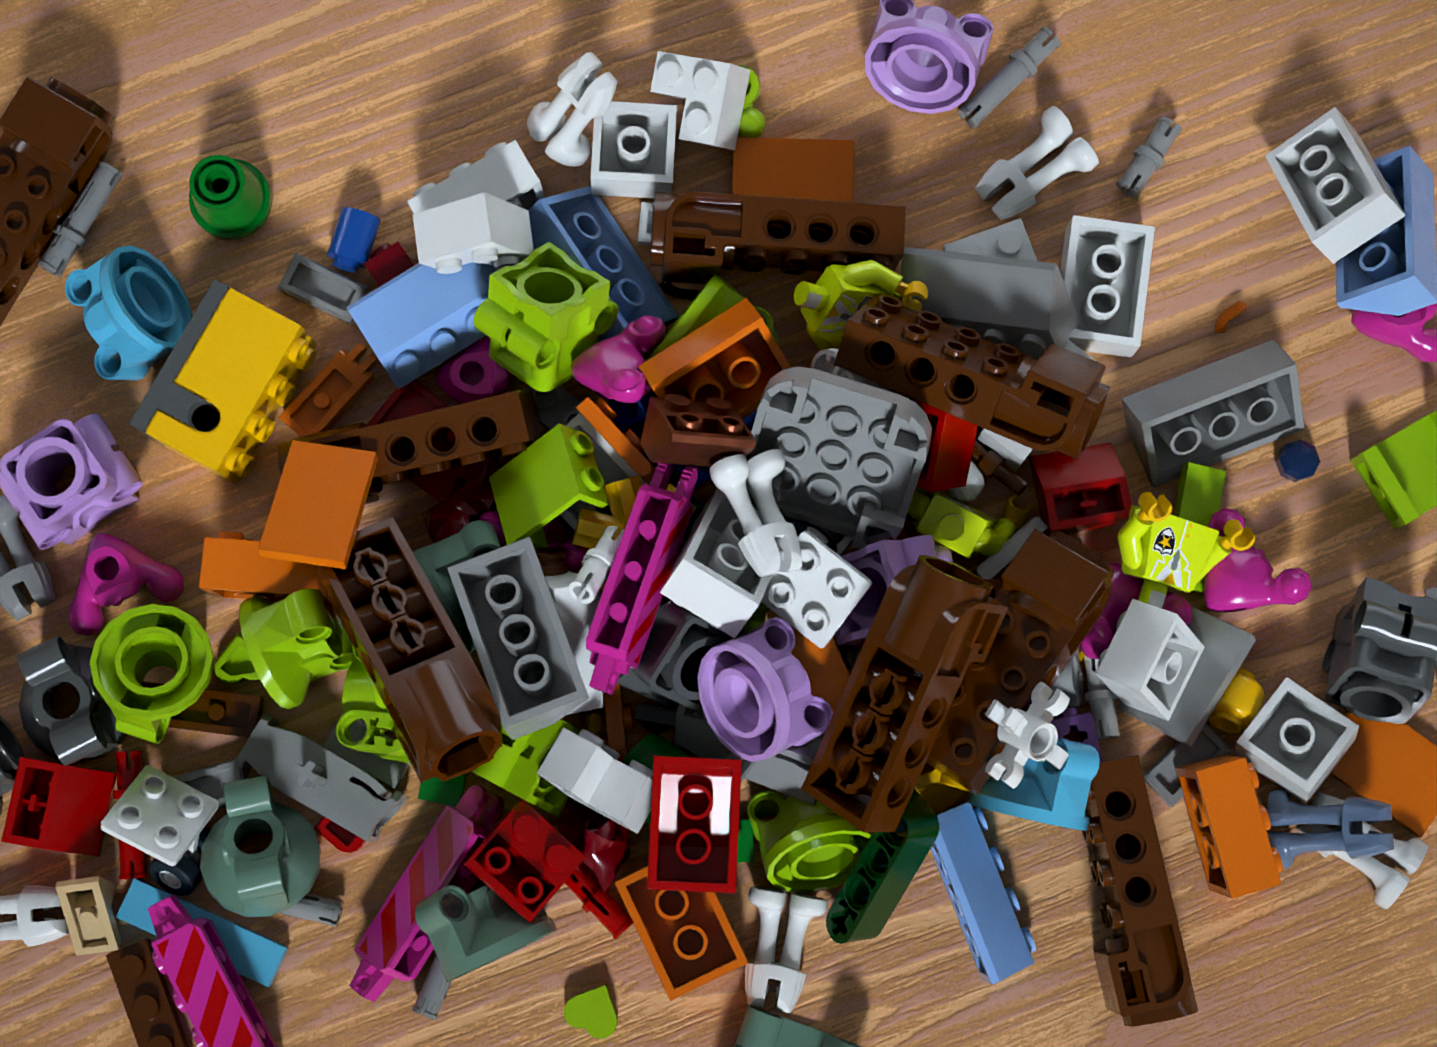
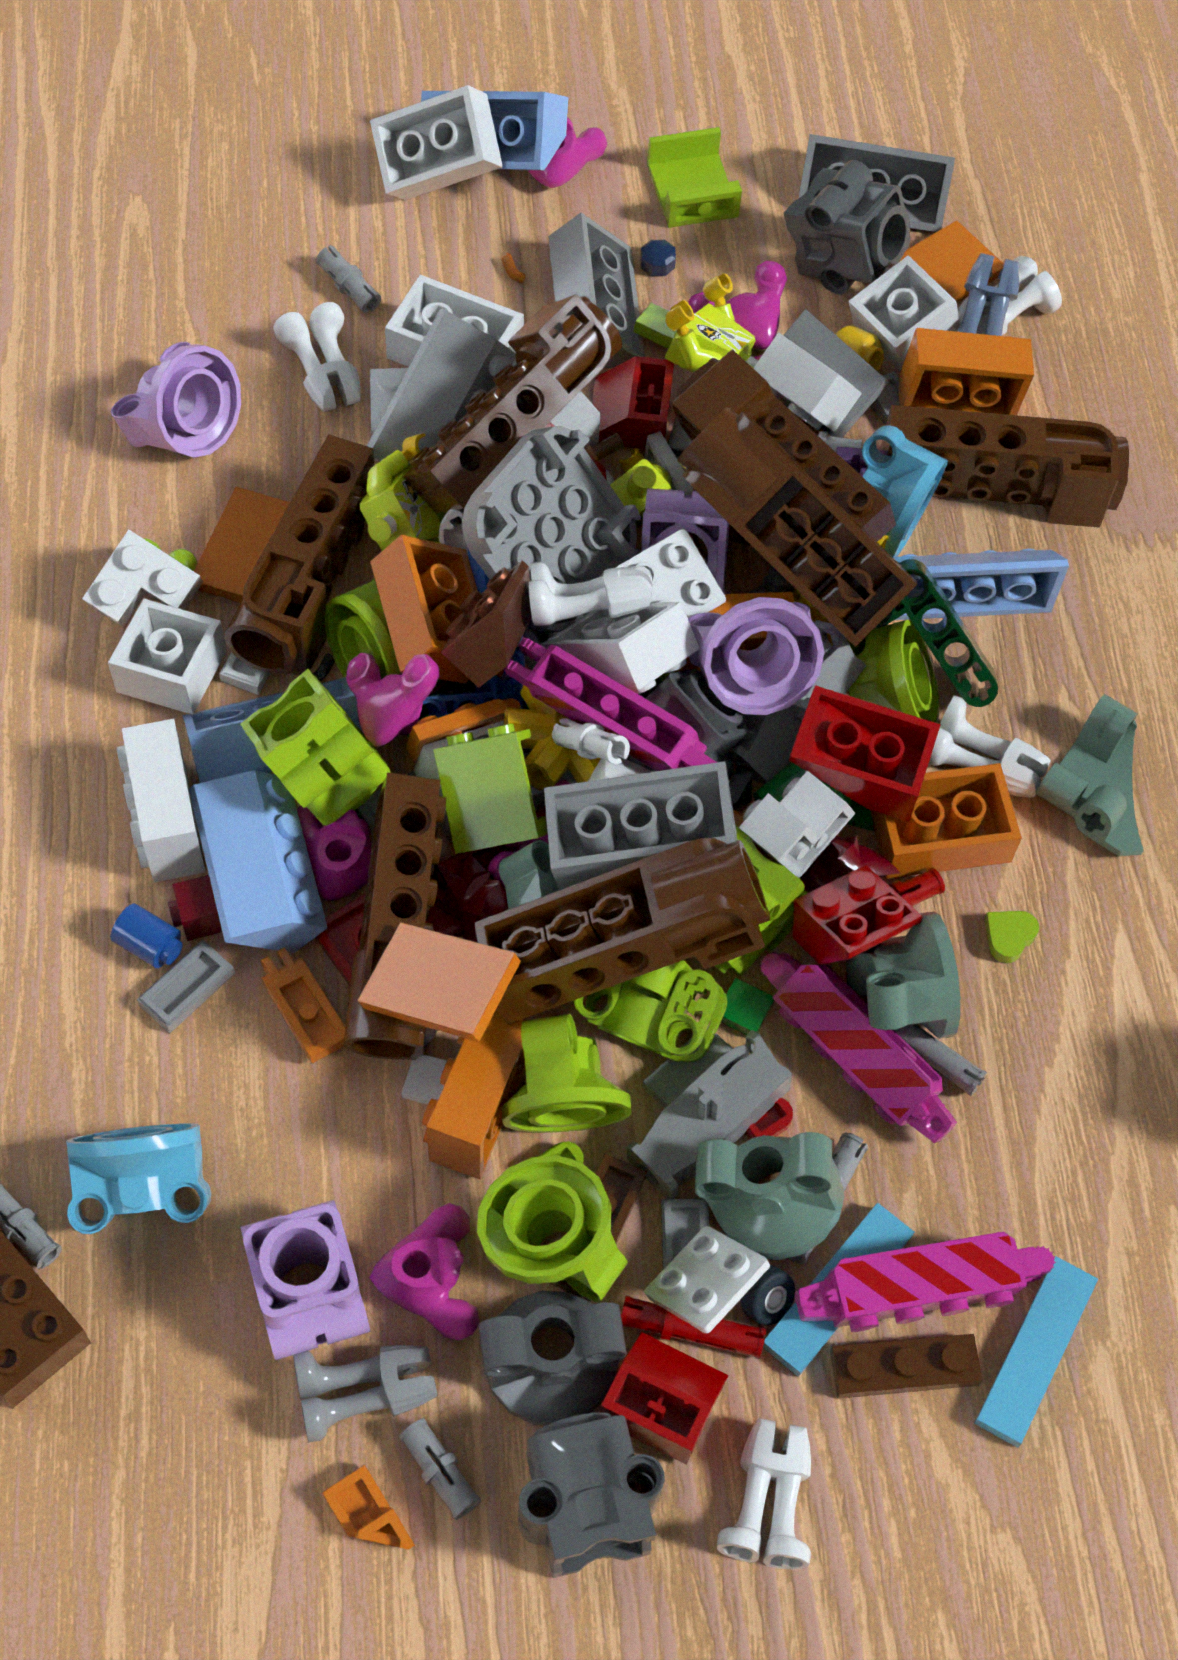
camera: 80 degrees left, 20 degrees down
(89, 914) = (793, 1391): tan slope -> none
(231, 366) = (257, 1089): yellow piece -> none
(237, 210) = (52, 1059): green piece -> none
(473, 231) = (206, 777): white brick -> none
(591, 101) = (109, 658): white piece -> none
(1022, 64) = (225, 340): light grey pin -> none
(1027, 734) = (860, 445): white pin -> none

